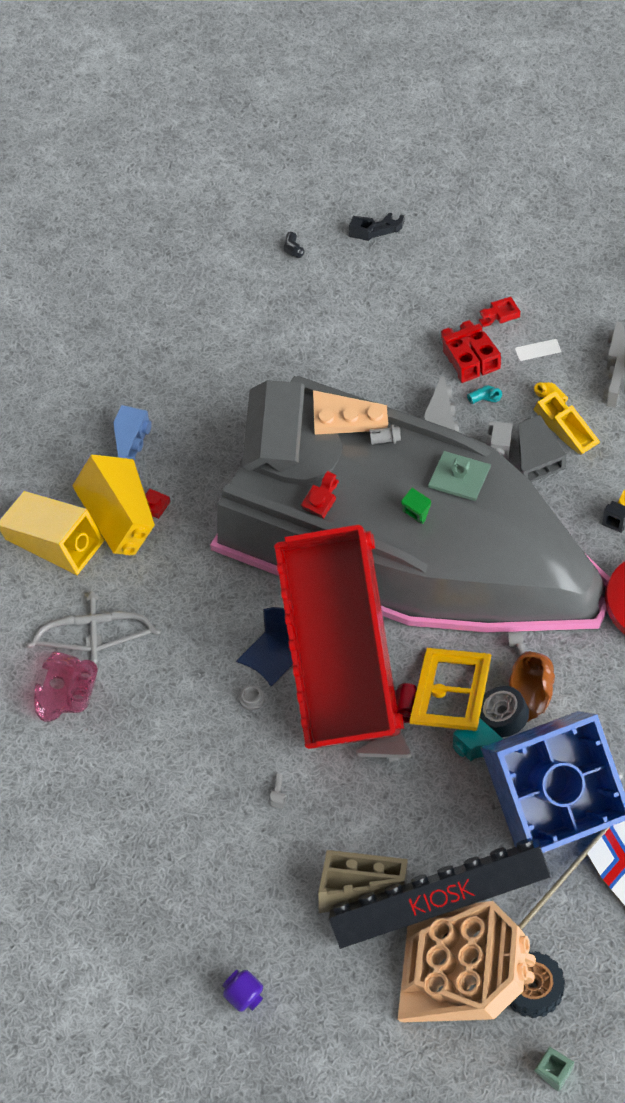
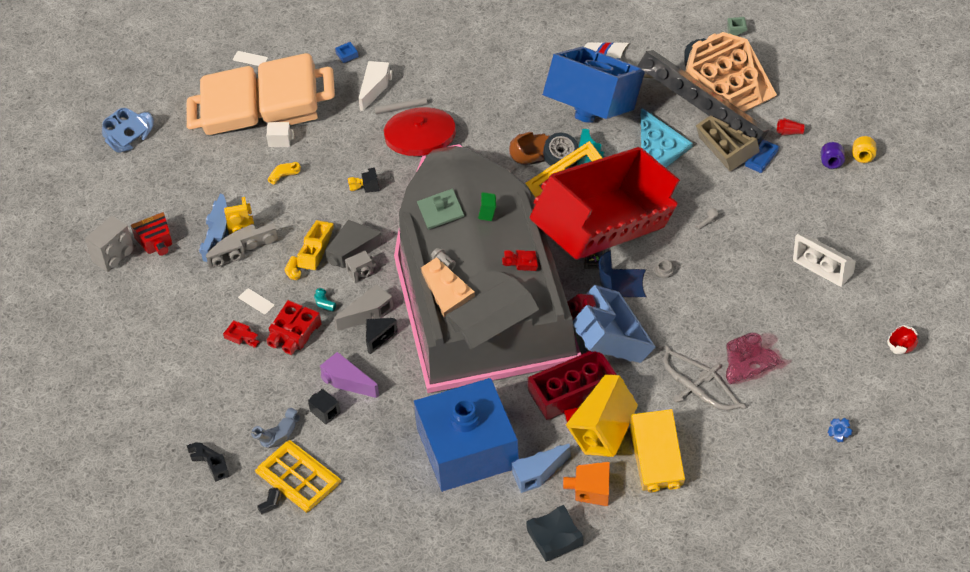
camera: 130 degrees left, 5 degrees down
(53, 406) = (554, 533): none -> black brick
(68, 460) = (590, 483): none -> orange torso
(109, 845) = (823, 259): none -> white slope
(185, 514) = (568, 383): none -> dark red brick
(196, 580) = (612, 327): none -> medium blue piece
(204, 392) = (466, 434): none -> blue brick
(218, 1034) = (864, 149): none -> yellow head
(248, 554) = (578, 303): none -> dark red brick
(304, 291) = (288, 491): none -> yellow piece
(316, 924) = (763, 158): none -> blue tile
(330, 984) = (789, 127): none -> red cone
(353, 325) = (324, 406): none -> black brick
(356, 279) = (279, 434): none -> sand blue arm
(372, 358) = (346, 376): none -> medium lavender slope
(402, 401) = (379, 331): none -> black slope
(431, 829) = (661, 140): none -> medium azure tile

